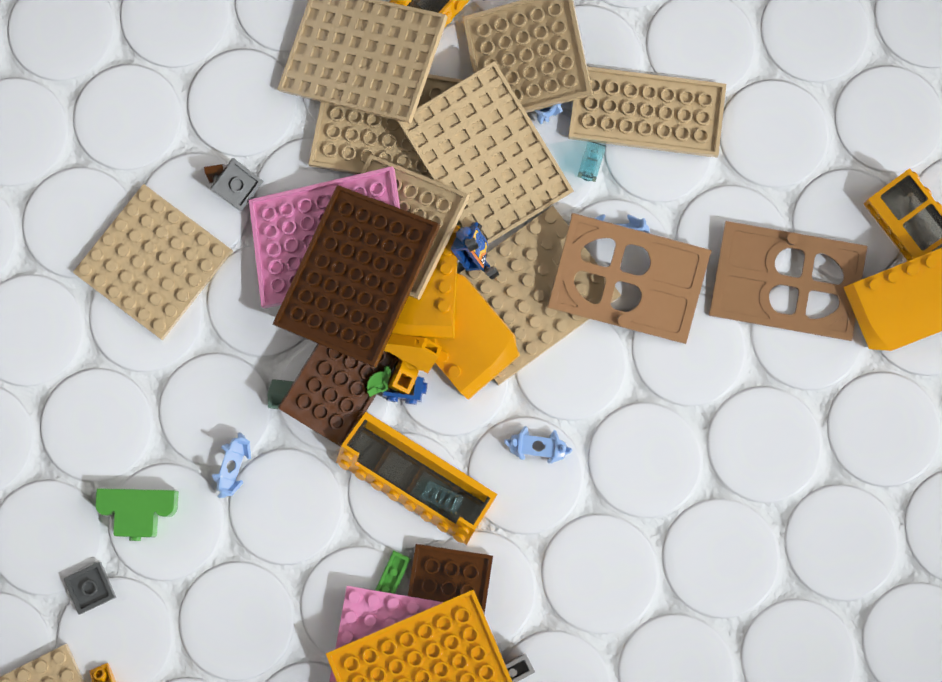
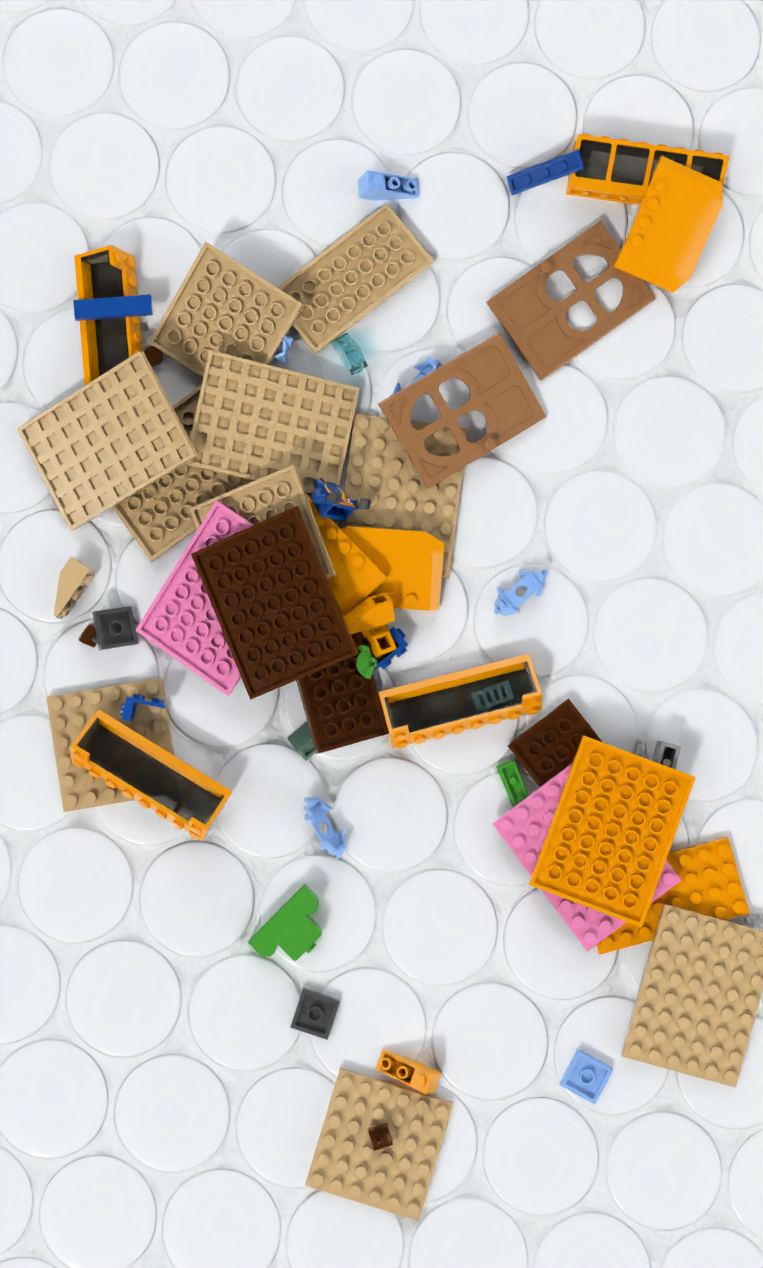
camera: 55 degrees left, 5 degrees up
(153, 306) = (149, 775): none -> window
(187, 247) = (129, 708): none -> blue bracket
(240, 124) = (71, 582): none -> tan slope
(456, 29) = (153, 355): none -> reddish brown tile
(738, 73) = (386, 186): none -> light blue slope
(861, 173) = (545, 172): none -> blue tile

